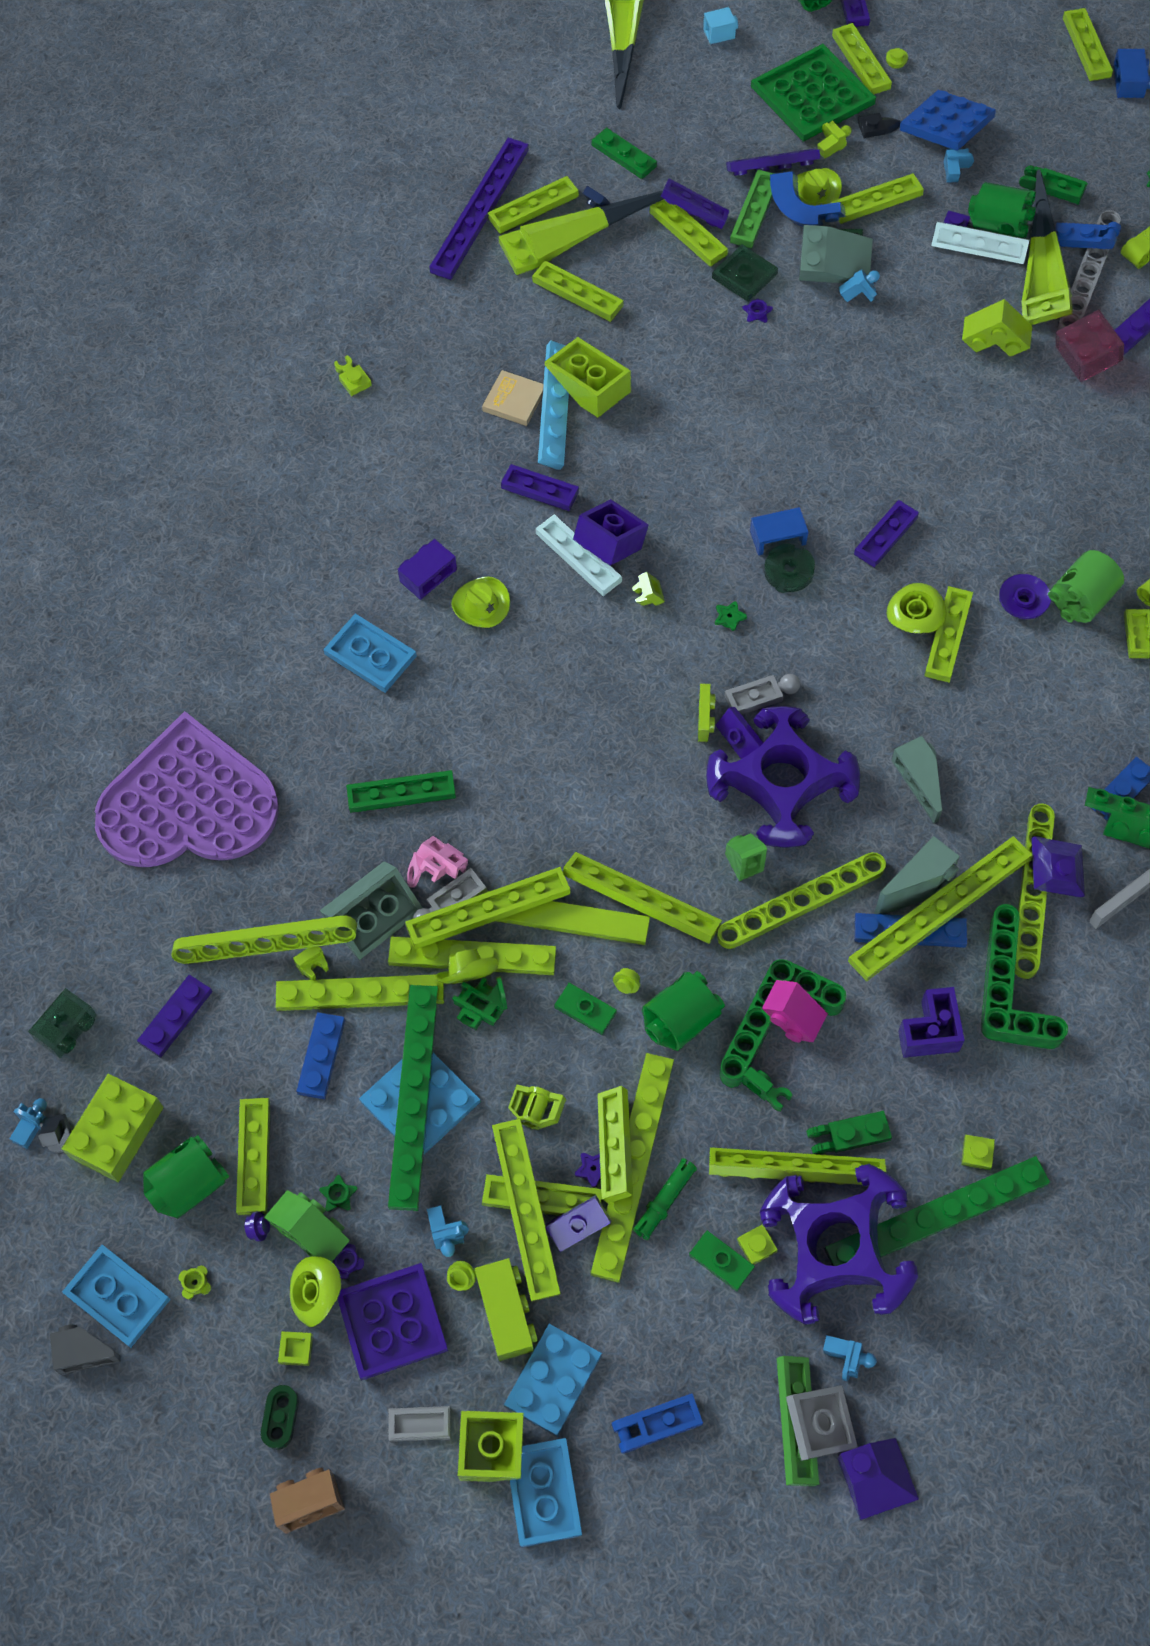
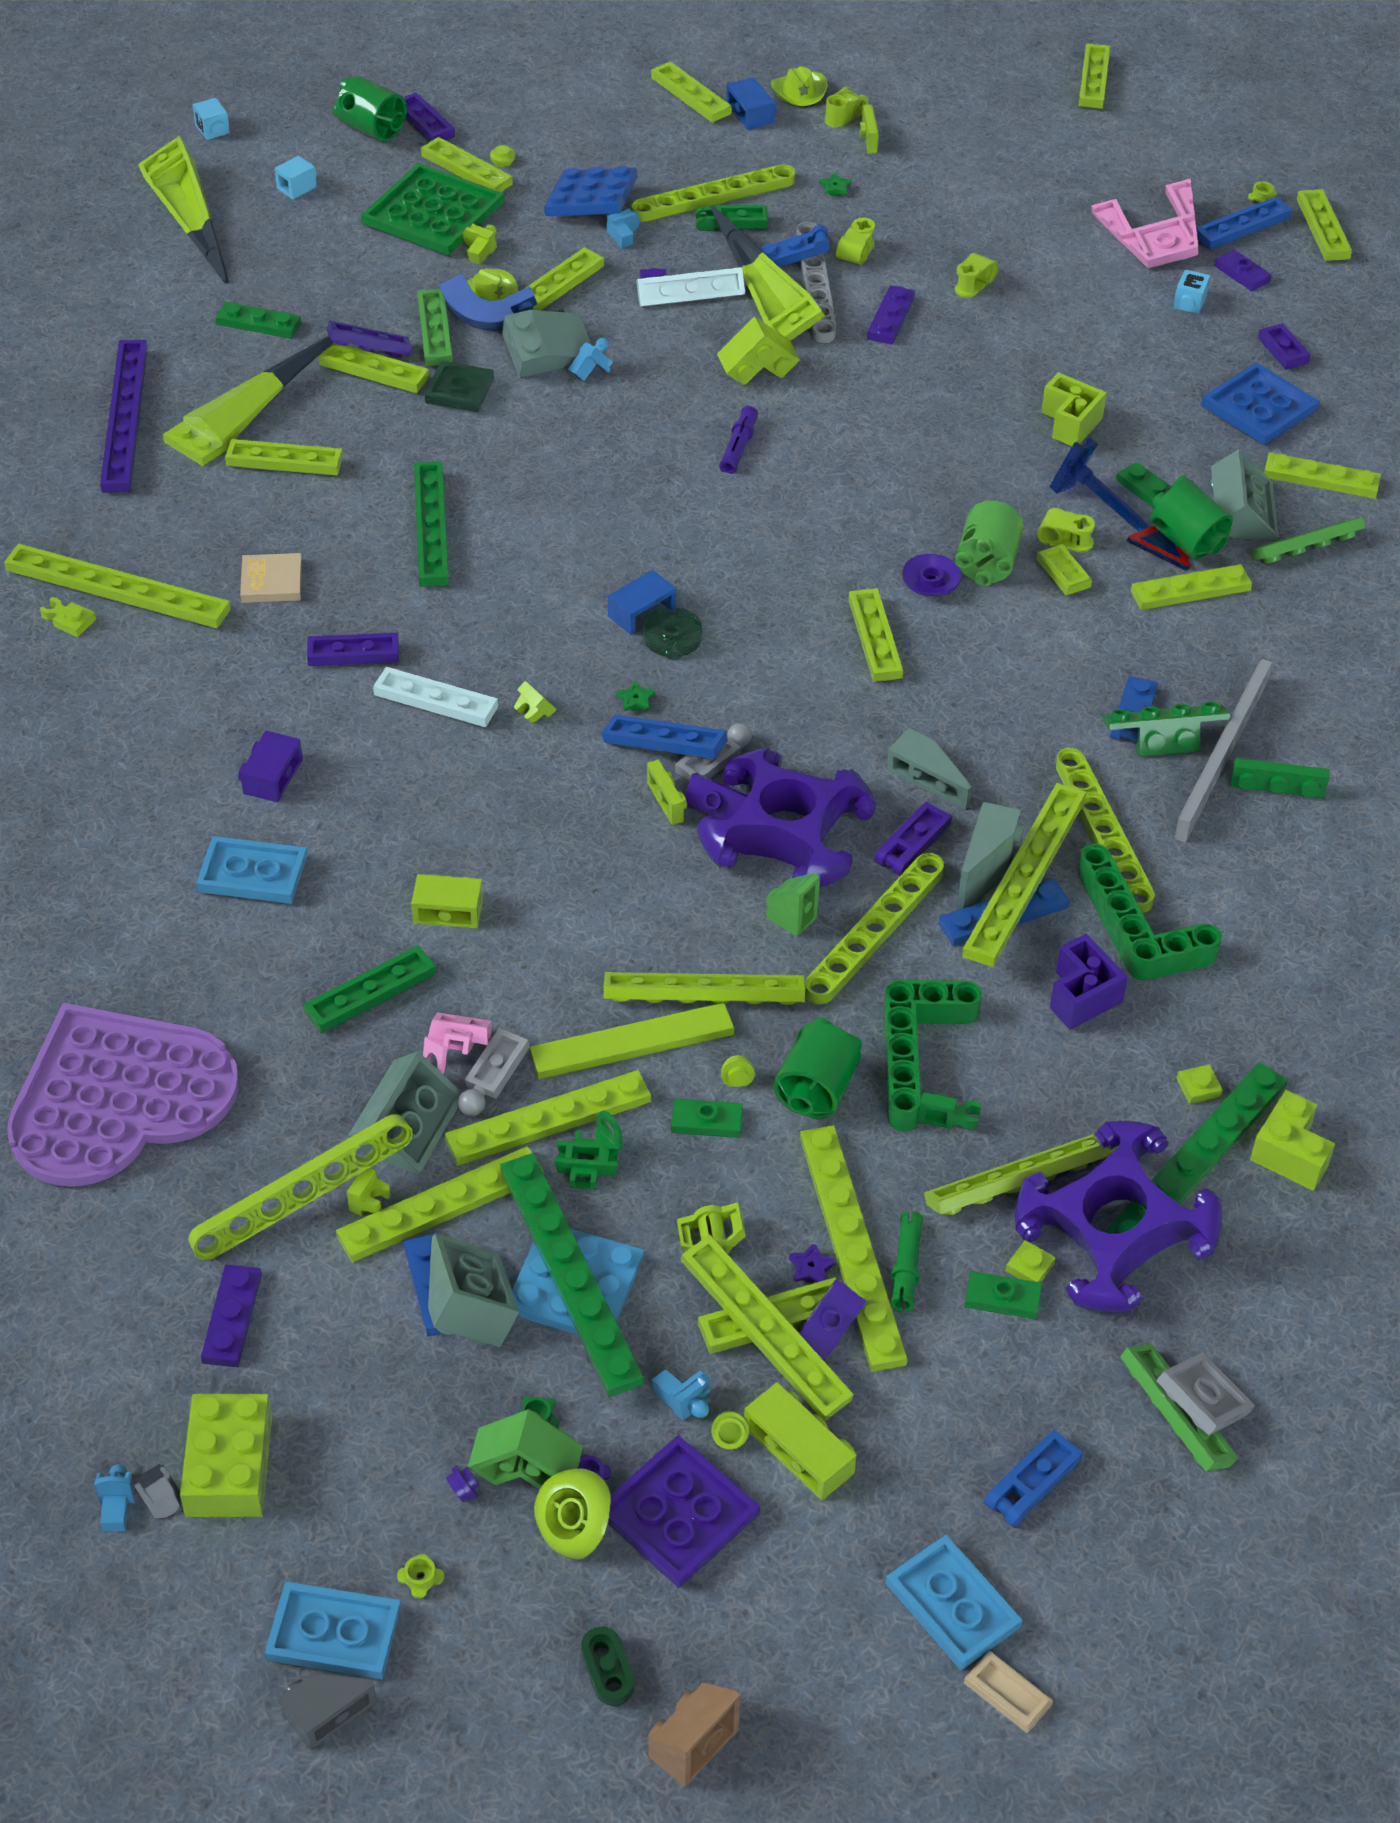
camera: 30 degrees left, 15 degrees down
(65, 1009) = (98, 1375): clear green brick -> none
(183, 1178) = (349, 1463): green cylinder -> none
(253, 1156) = (414, 1415): lime plate -> none
(295, 1348) = (583, 1587): lime plate -> none
(336, 1077) = (469, 1292): none -> sand green slope
(399, 363) = (117, 585): none -> lime plate
(419, 1423) = (772, 1601): light grey tile -> none
(466, 967) = (557, 1120): lime hat -> none
(482, 602) = (353, 777): lime hat -> none
(487, 907) = (541, 1058): lime plate -> none
(490, 1446) = (870, 1576): lime slope -> none
(493, 740) = (447, 901): none -> lime brick
(533, 204) = (184, 394): lime plate -> none
(544, 1581) = (1008, 1691): none -> tan tile
(553, 417) = (323, 568): medium azure plate -> none
(553, 1379) = (894, 1490): dark azure plate -> none
(590, 376) = (350, 526): lime slope -> none
(594, 198) = (252, 366): dark blue plate -> none
(610, 532) = (462, 659): dark purple brick -> none
(614, 1144) = (823, 1227): lime plate -> none
(656, 395) = (431, 524): none -> green plate
(728, 664) = (664, 736): none -> blue plate
(760, 305) = (492, 416): dark purple plate -> none
(783, 160) = (439, 275): dark purple plate -> none
(794, 1011) = (937, 1021): dark pink brick -> none
(851, 1133) = (1062, 1119): green hinge -> none
(852, 1354) = (1190, 1319): dark azure piece -> none
(875, 125) = (515, 220): black plate -> none
(875, 834) = (913, 838): none -> dark purple plate
(877, 1477) = (1289, 1426): dark purple slope -> none
(886, 533) = (755, 568): dark purple plate -> none
(917, 609) = (829, 620): lime hat -> none
(946, 399) = (741, 433): none -> dark purple pin
(1002, 209) = (698, 247): green cylinder -> none
(1011, 1240) = (1289, 1146): none -> lime brick
(1058, 867) = (1117, 797): dark purple slope -> none
(1061, 148) = (724, 187): none -> lime beam
(1089, 345) = (858, 339): clear pink brick -> none

